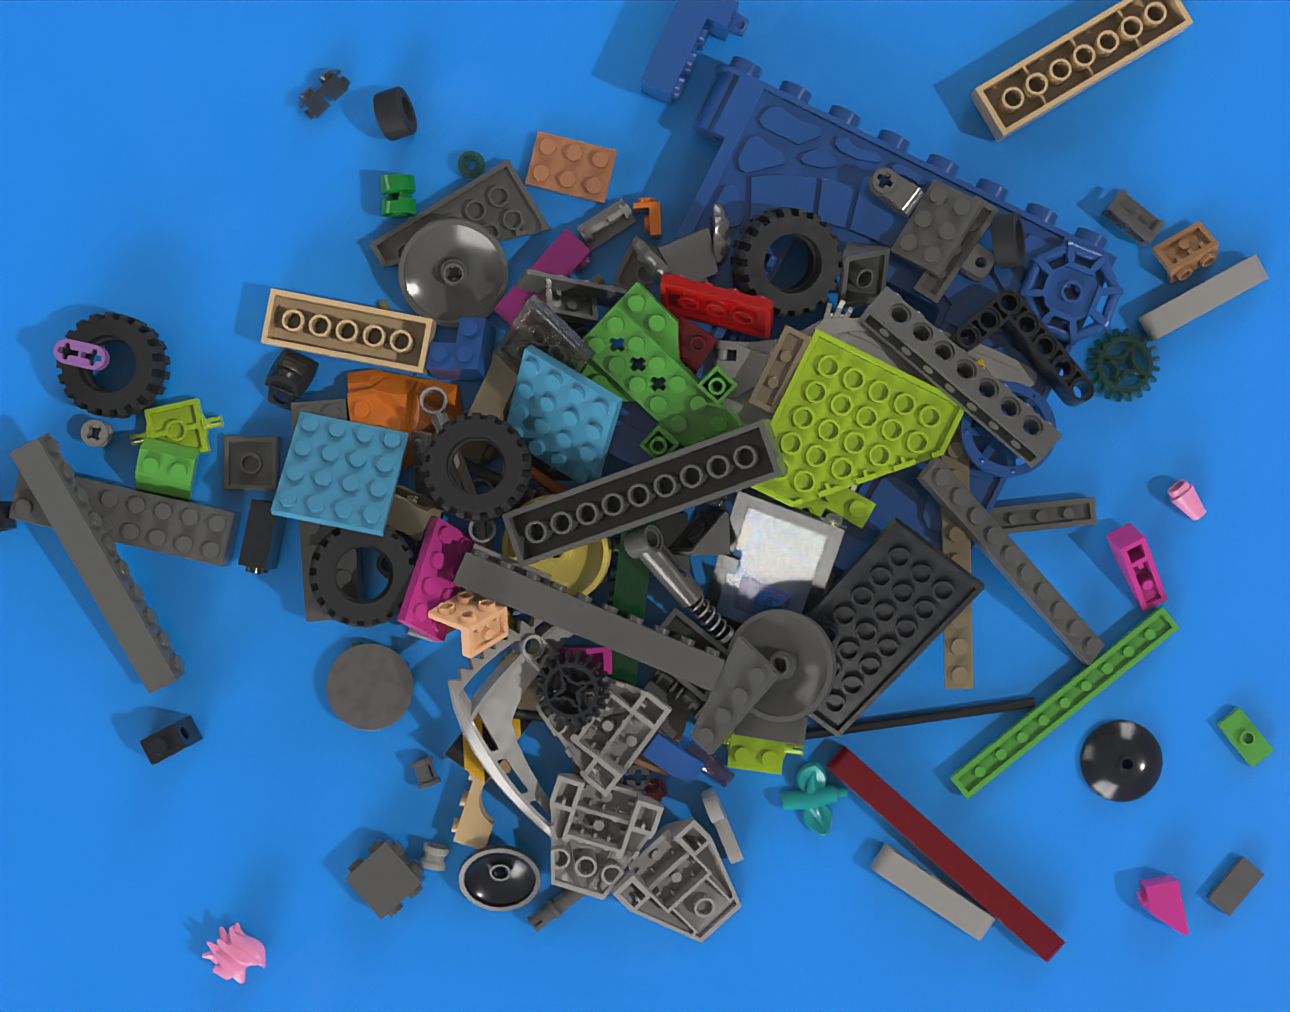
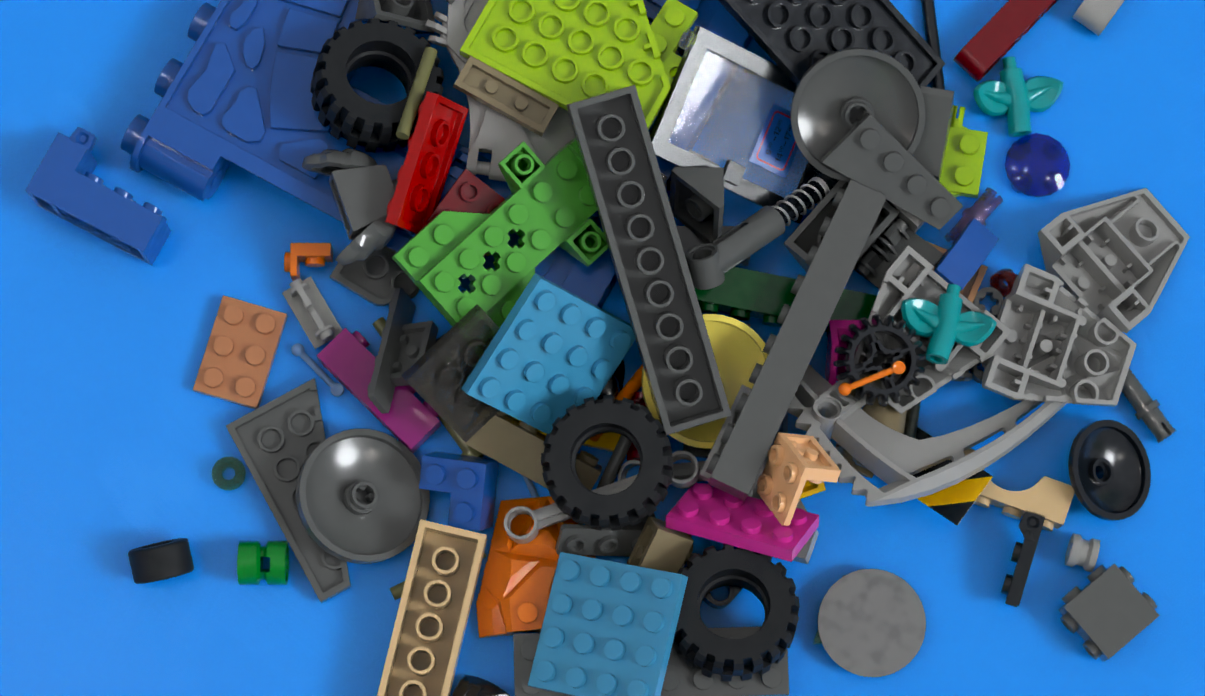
camera: 85 degrees left, 10 degrees down
(314, 98) = (118, 644): clear smoke hinge -> none
(425, 772) = (978, 560): dark grey bush -> none
(427, 808) = (1023, 555): none -> black hinge
(564, 703) = (897, 367): none -> orange hinge
(575, 214) = (336, 388): none -> medium blue hinge
(608, 742) = (946, 323): none -> teal plant
(718, 817) = (1032, 205): light grey beam -> none
(756, 815) = (1037, 165): none -> clear blue dish
(775, 293) = (416, 93): none -> olive bar

